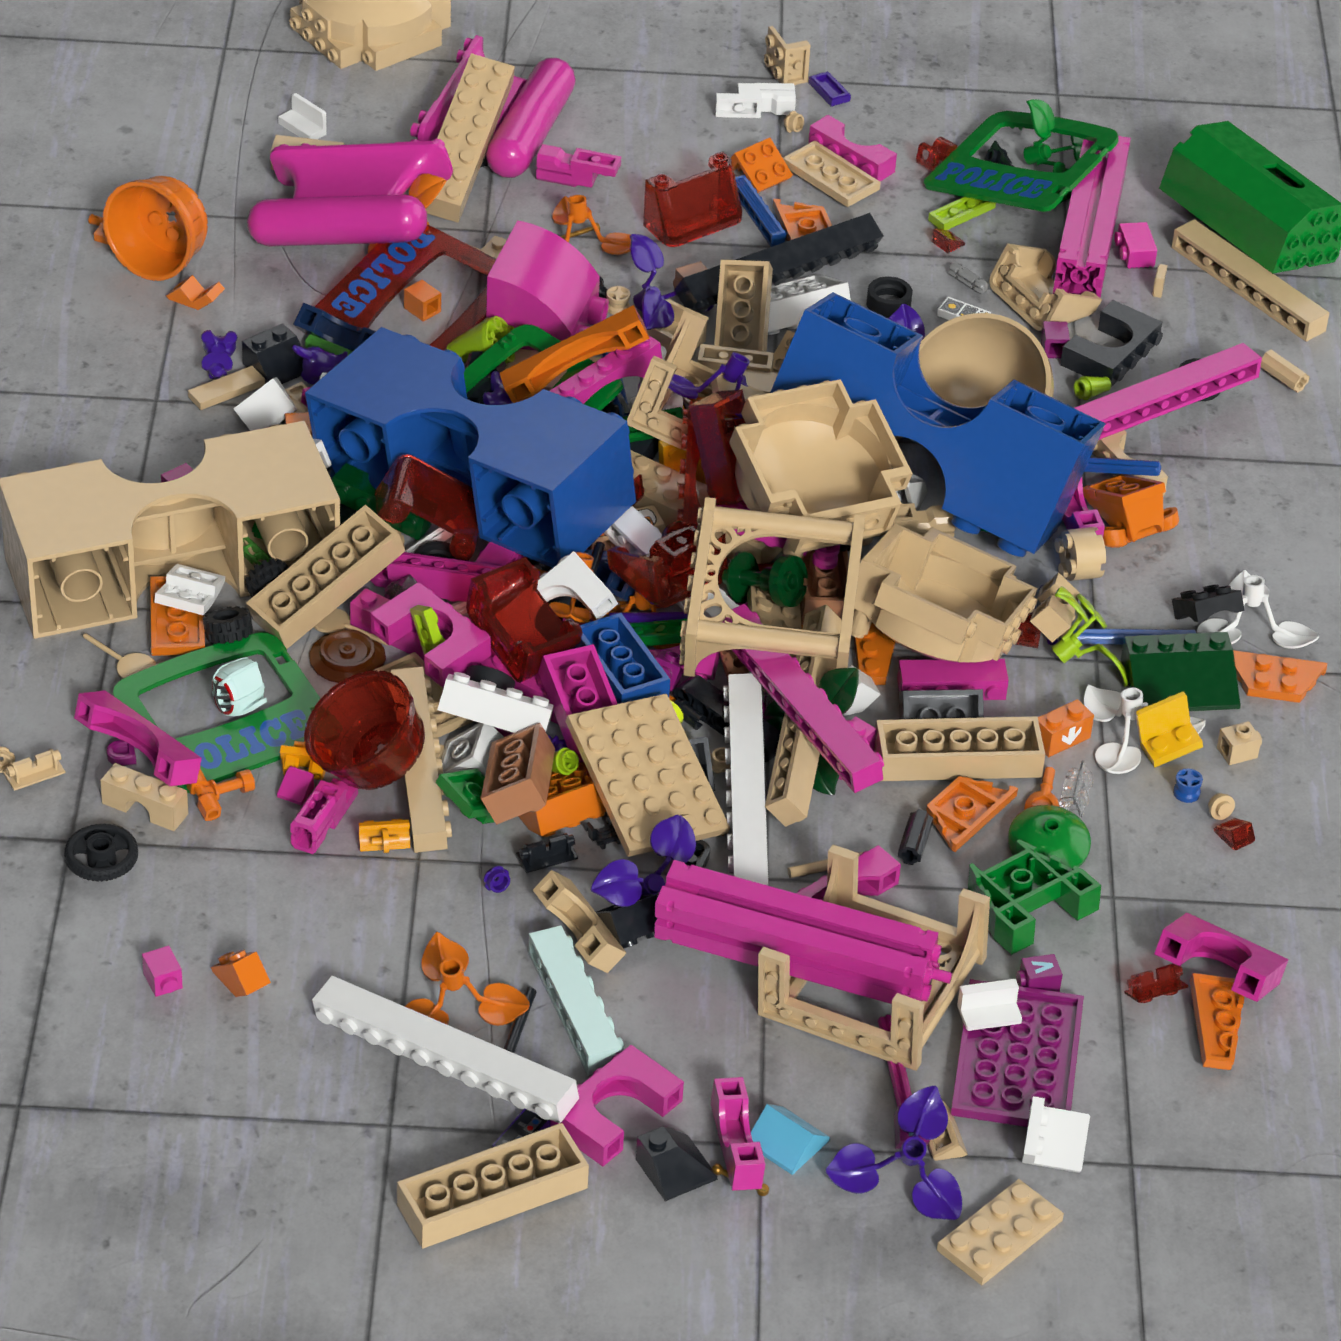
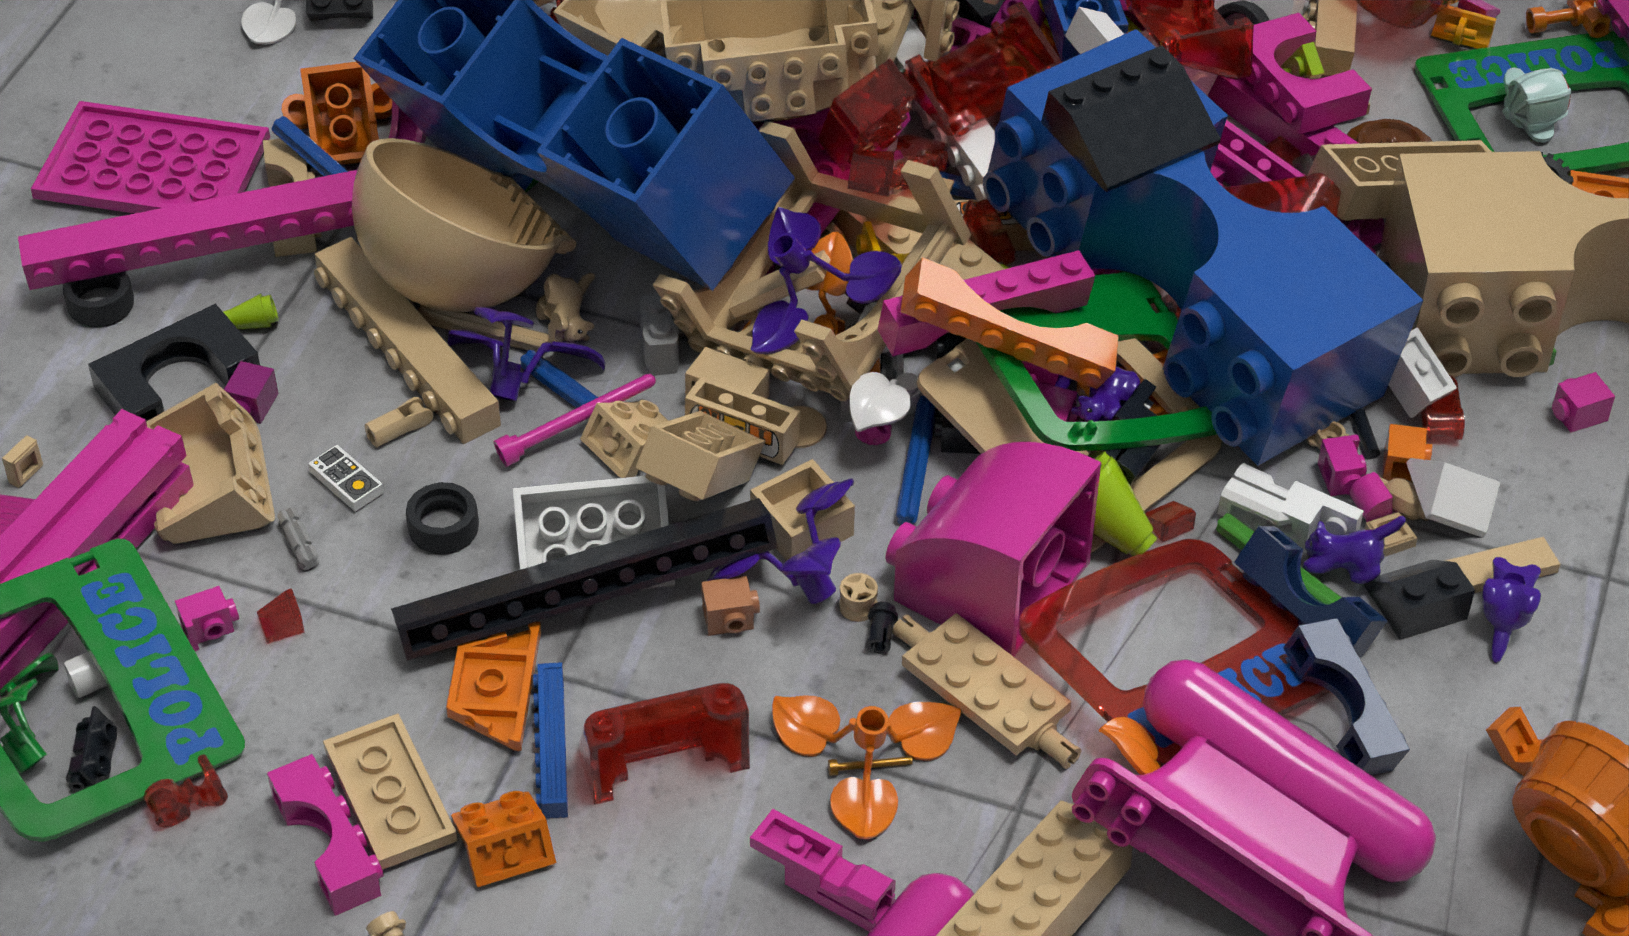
camera: 160 degrees left, 5 degrees up
(294, 275) = (1326, 657): none -> arch
(422, 300) = (1164, 644): orange brick -> none
(536, 416) = (1130, 118): none -> black slope
(959, 212) = (243, 659): lime plate -> none
(989, 226) = (206, 616): none -> dark pink brick
(1239, 469) = (146, 159): none -> dark pink plate

